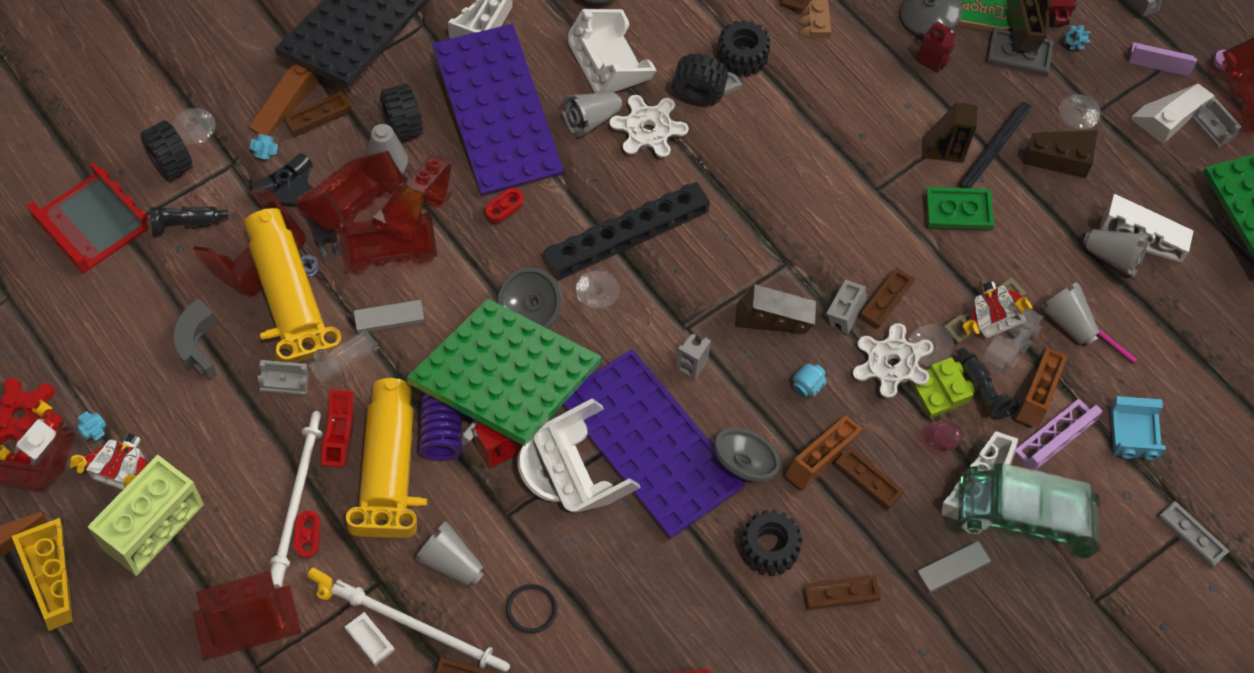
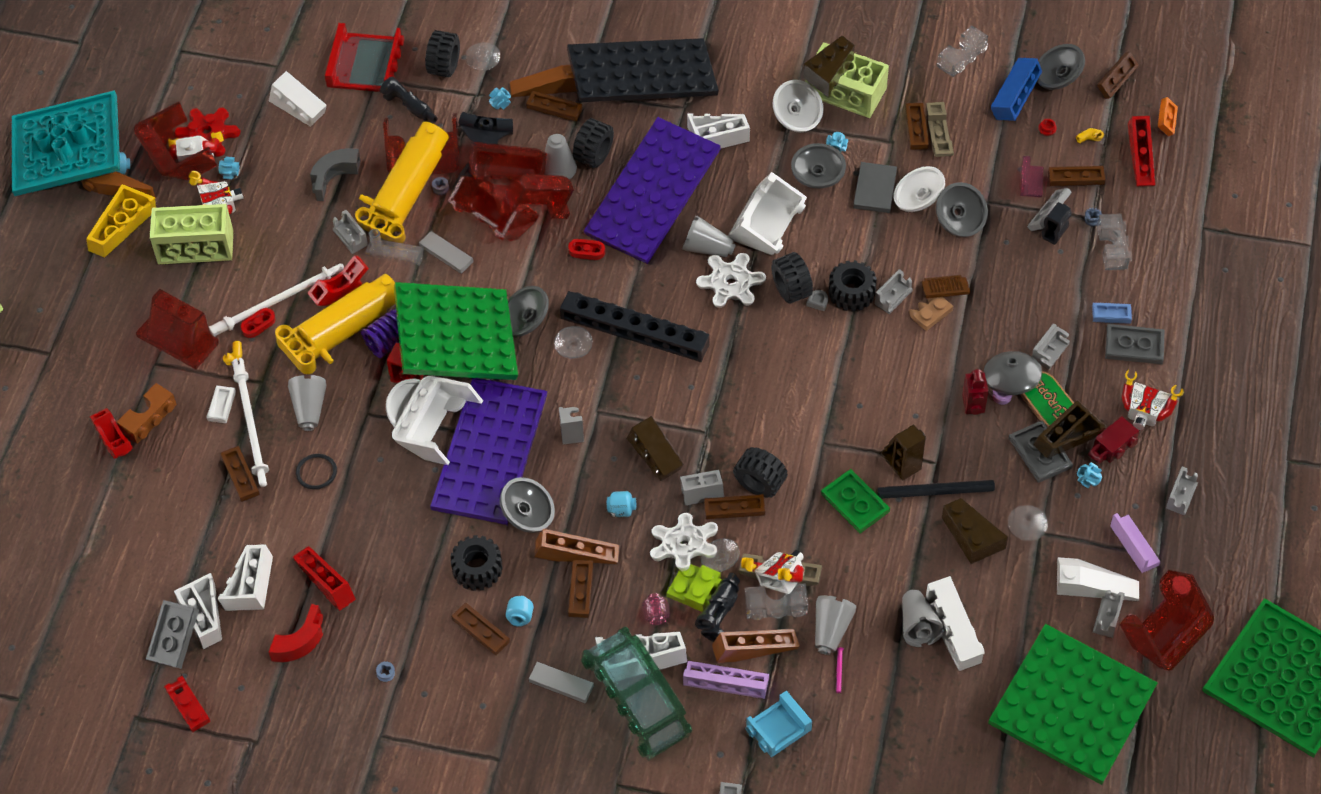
camera: 55 degrees right, 5 degrees down
(76, 308) = (296, 99): none -> white wedge
(775, 27) = (893, 292): none -> light grey hinge
(852, 545) = (519, 610): none -> medium azure head
(880, 250) = (760, 472): none -> black tyre

